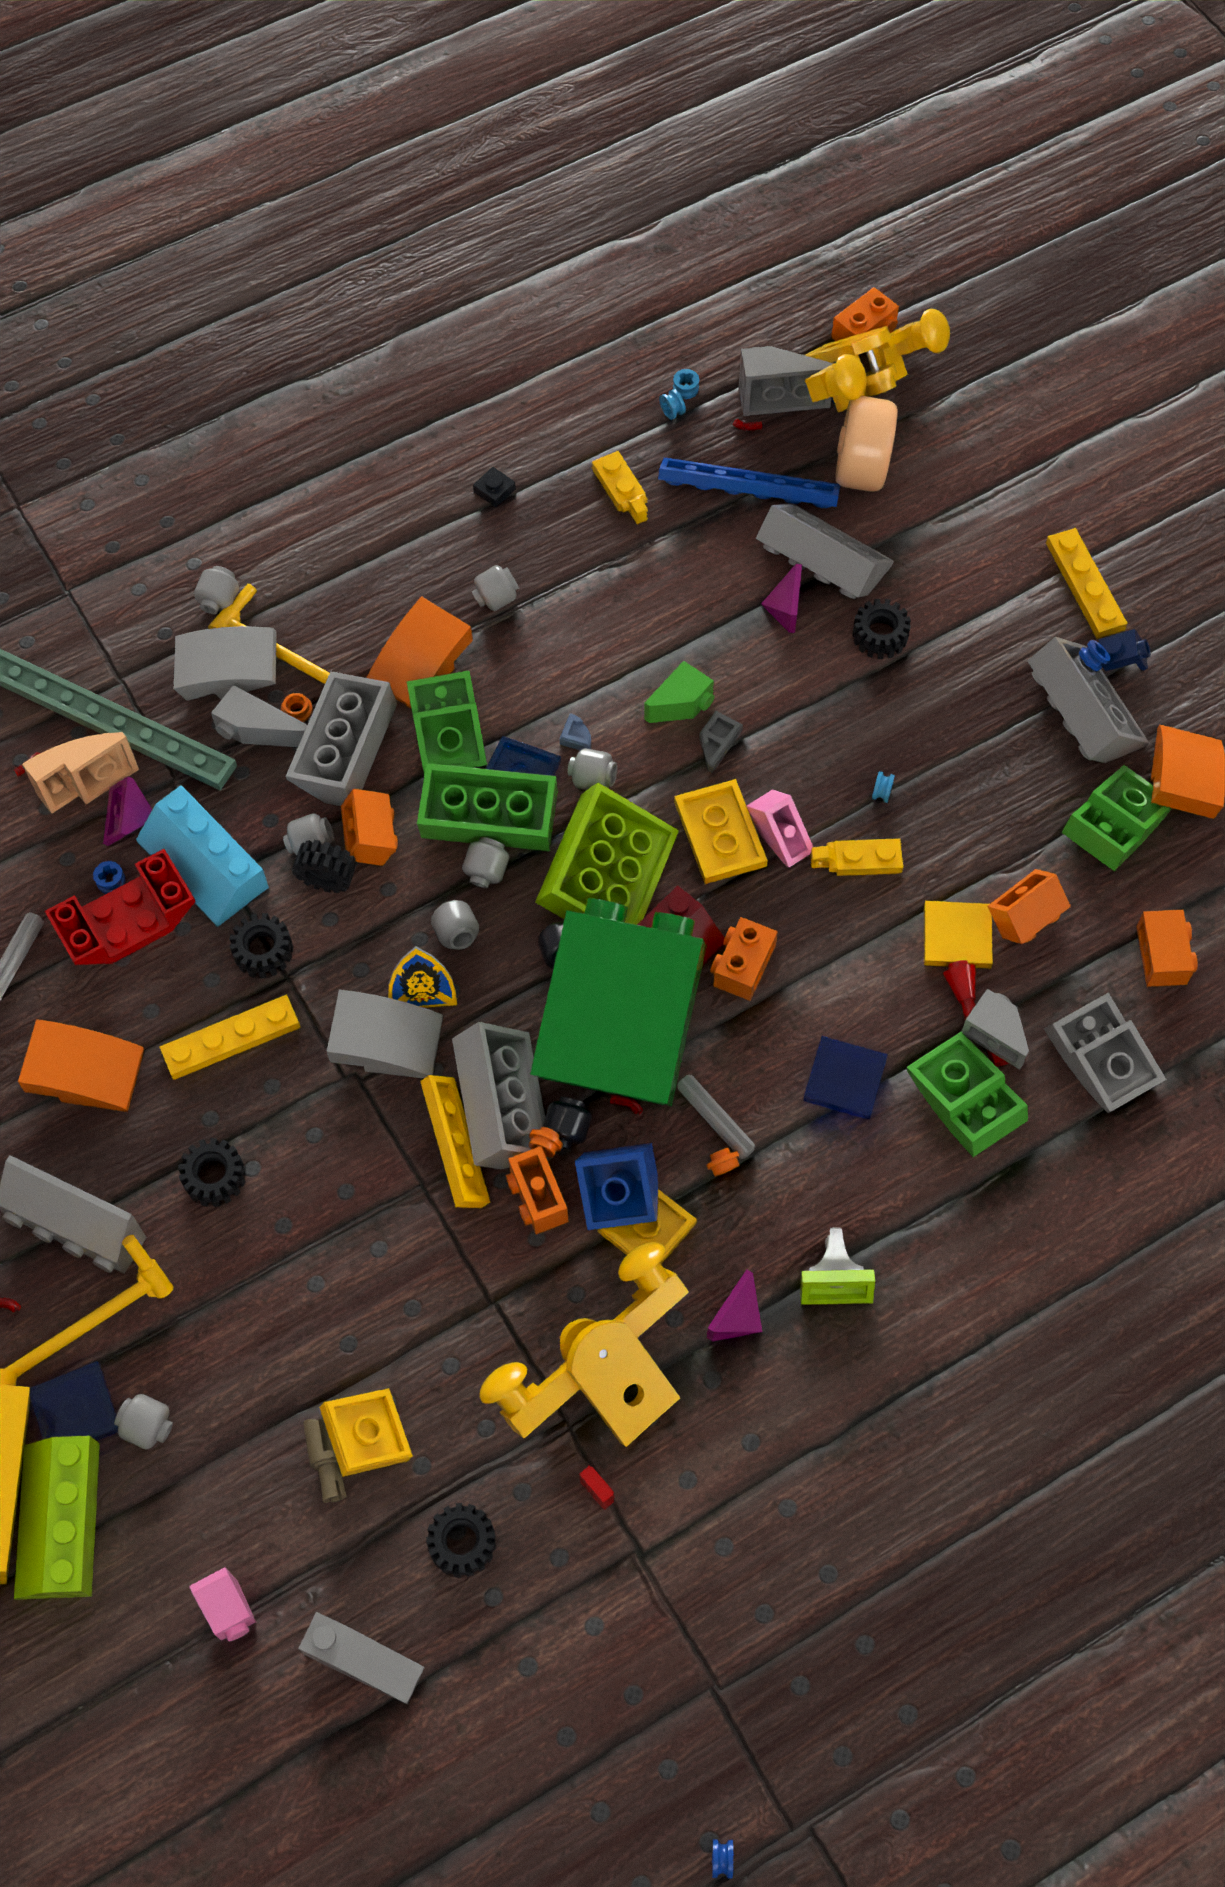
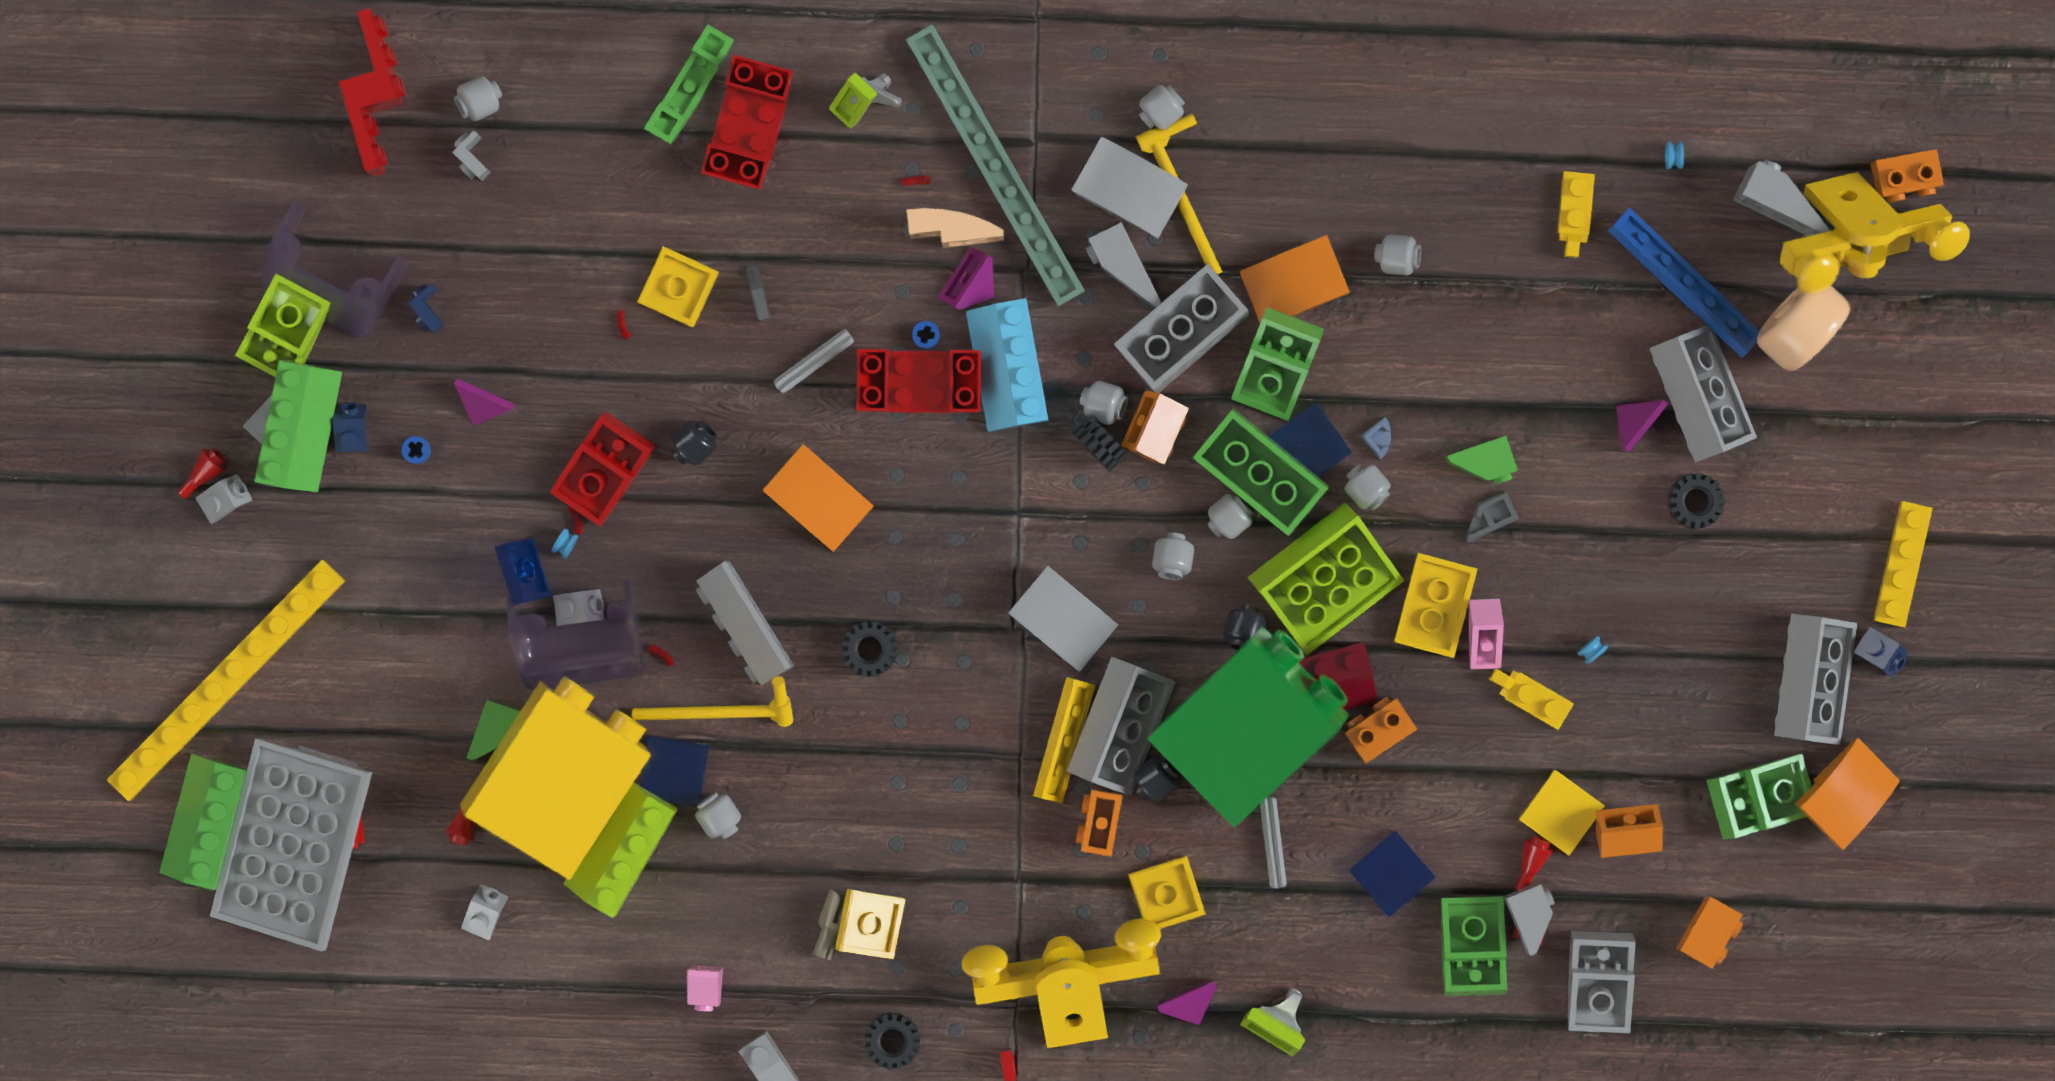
camera: 35 degrees right, 25 degrees up
(229, 1037) = (944, 539): yellow plate -> none
(261, 928) = (1006, 458): black tyre -> none
(297, 701) = (1170, 260): orange plate -> none
(422, 981) = (1115, 593): shield -> none
(494, 487) = (1464, 141): black plate -> none
(547, 1139) = (1129, 789): orange plate -> none
(618, 1186) = (1162, 856): blue slope -> none
(686, 376) = (1696, 130): dark azure bush -> none
(723, 1161) = (1253, 883): orange plate -> none
(758, 425) = (1722, 210): red leg -> none
(1094, 655) = (1849, 645): blue bush -> none

